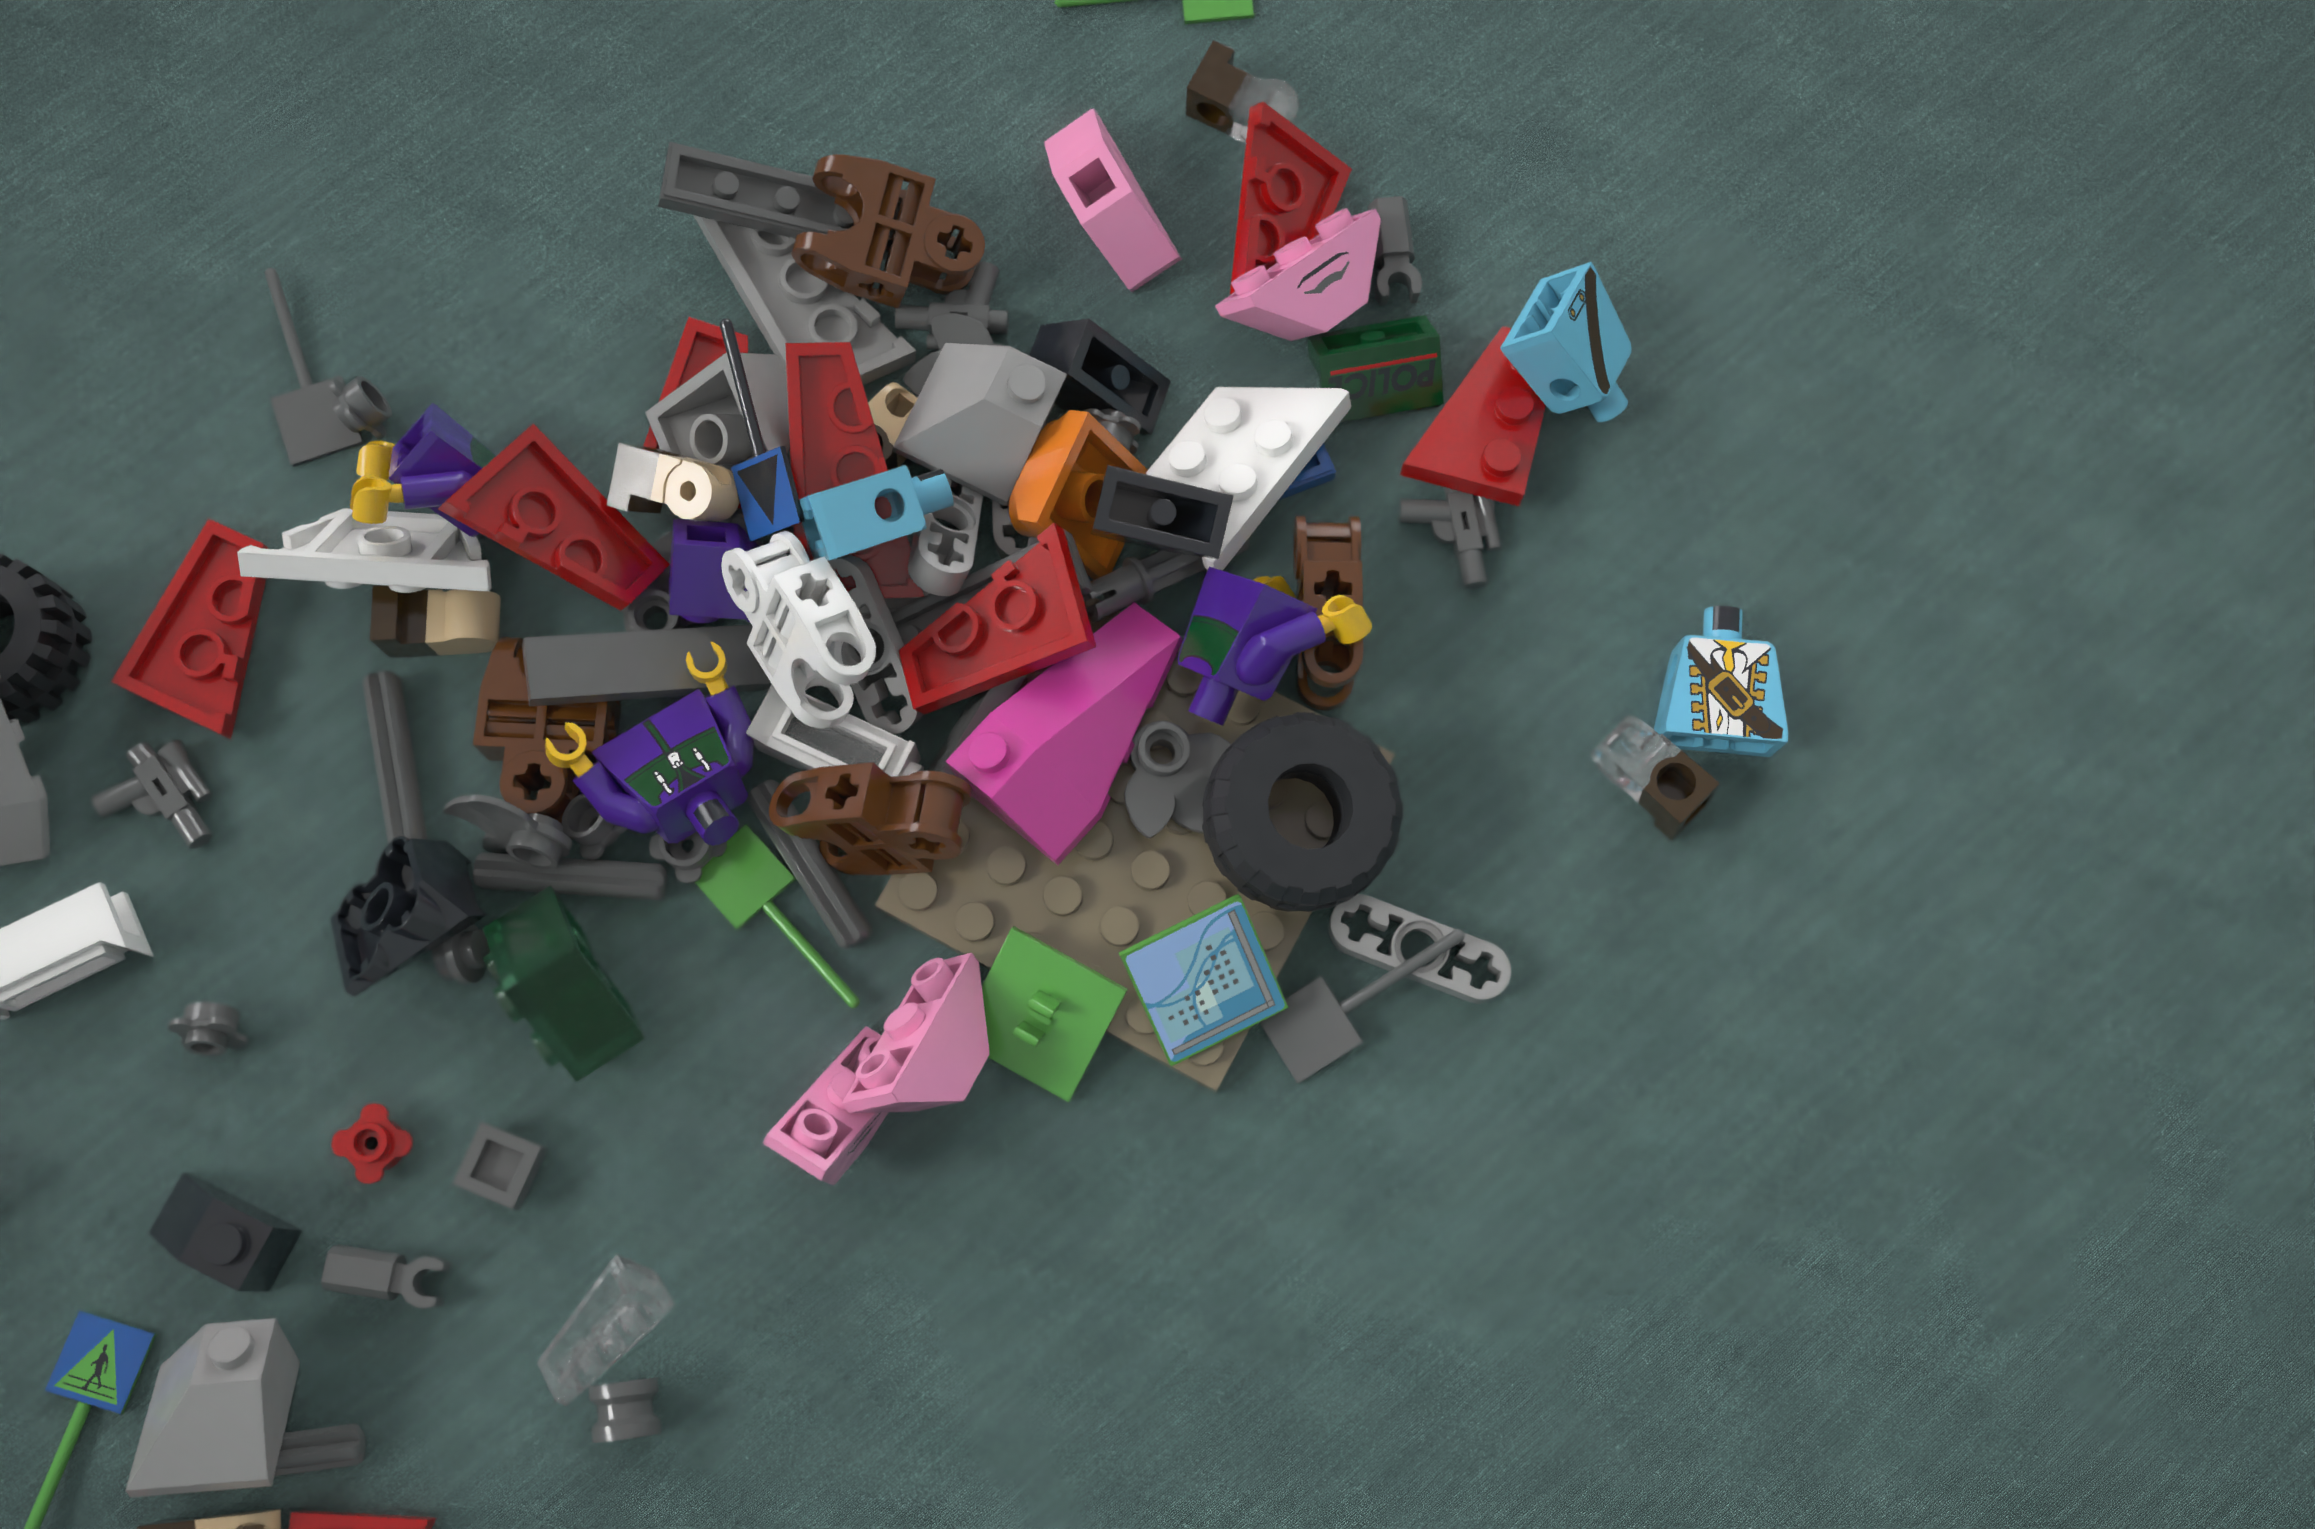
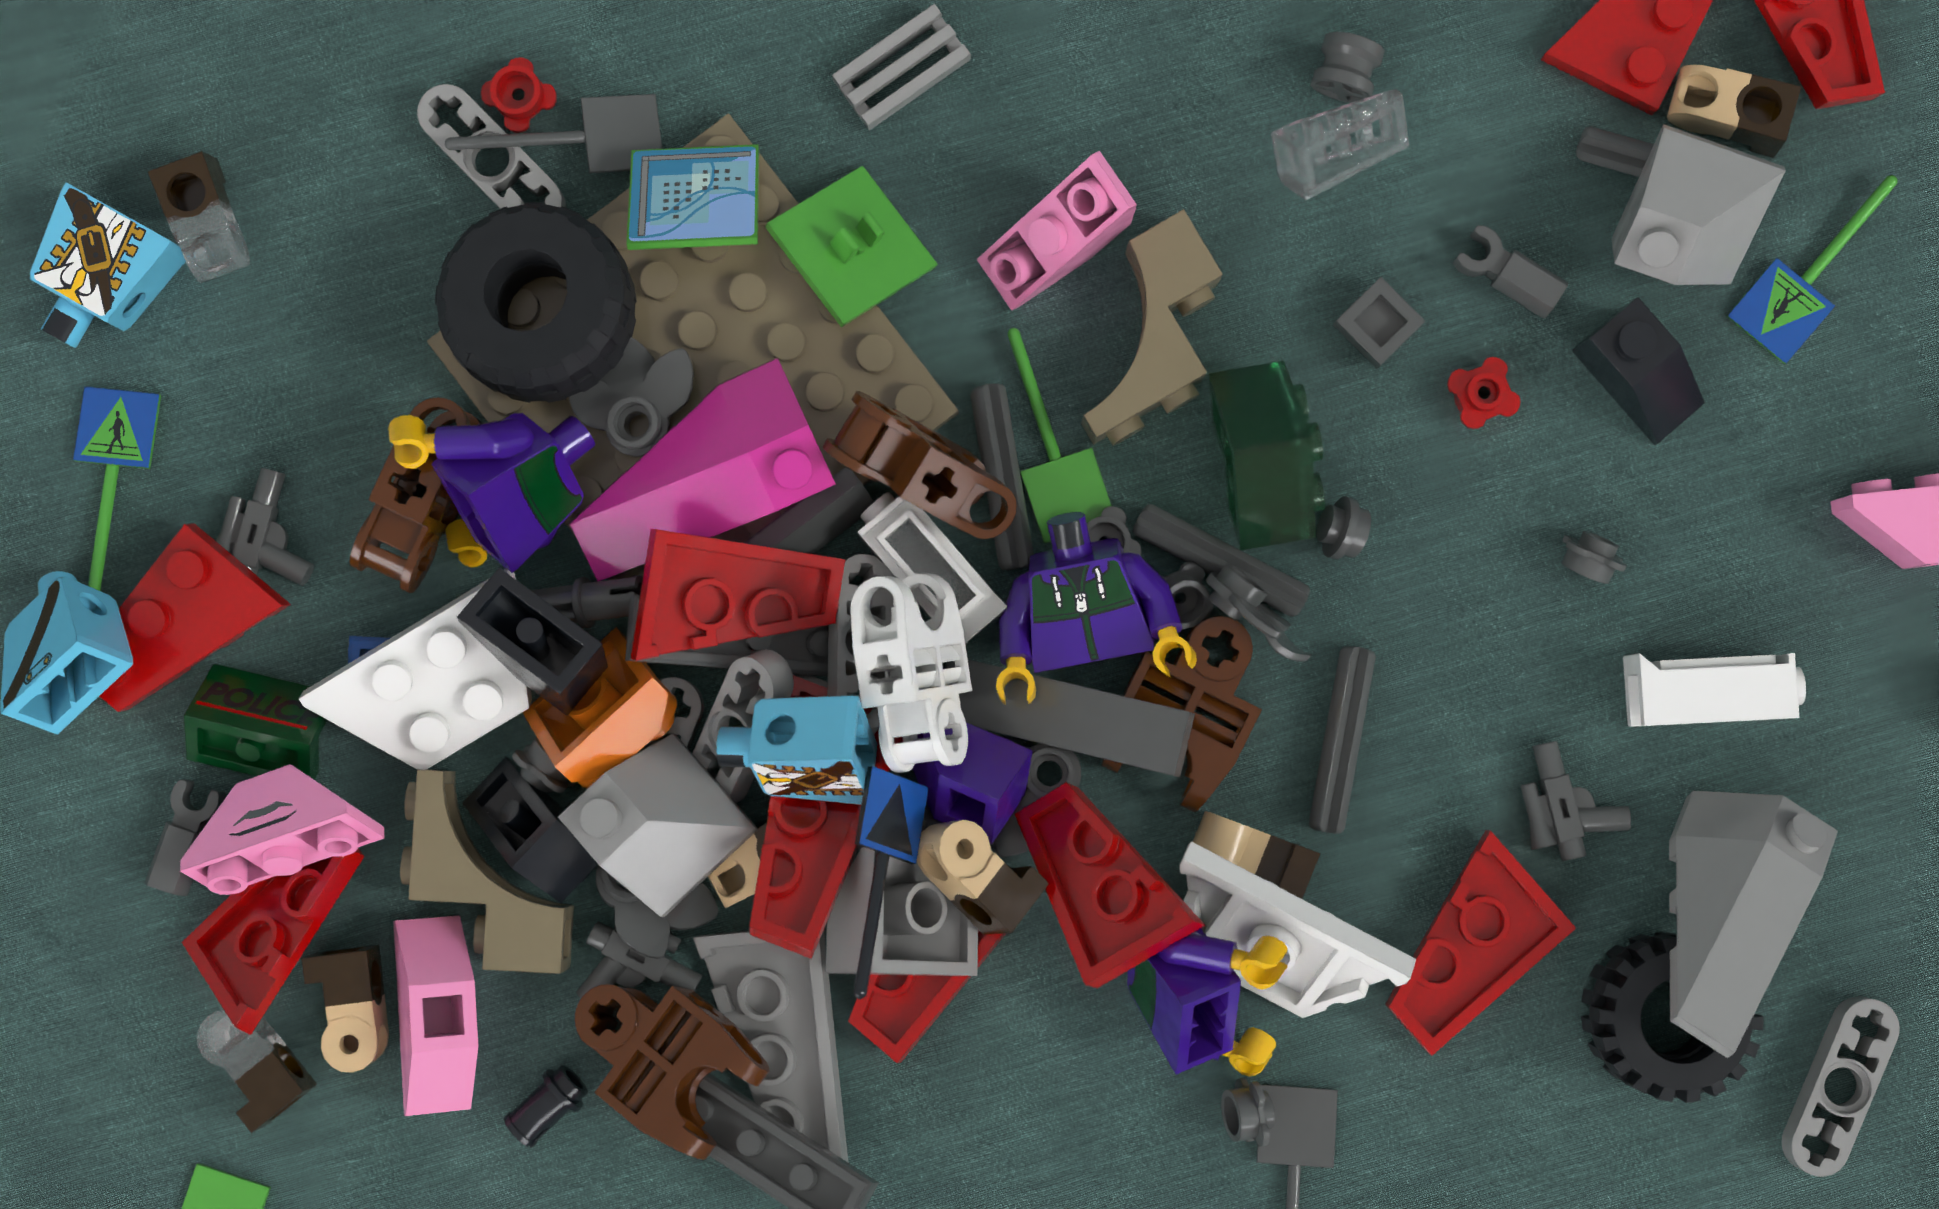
camera: 155 degrees left, 10 degrees up
(403, 910) = (1382, 582): black slope -> none
(694, 1025) = (1171, 274): none -> dark tan arch
(929, 1043) = (961, 253): bright pink slope -> none
(975, 180) = (546, 1105): none -> black pin
(1042, 1263) = (889, 46): none -> light grey tile
(1143, 313) = (445, 866): none -> dark tan arch
(1183, 181) = (353, 1005): none -> leg
(1419, 1003) = (514, 77): none -> red plate
(1630, 560) = (114, 431): none -> piece

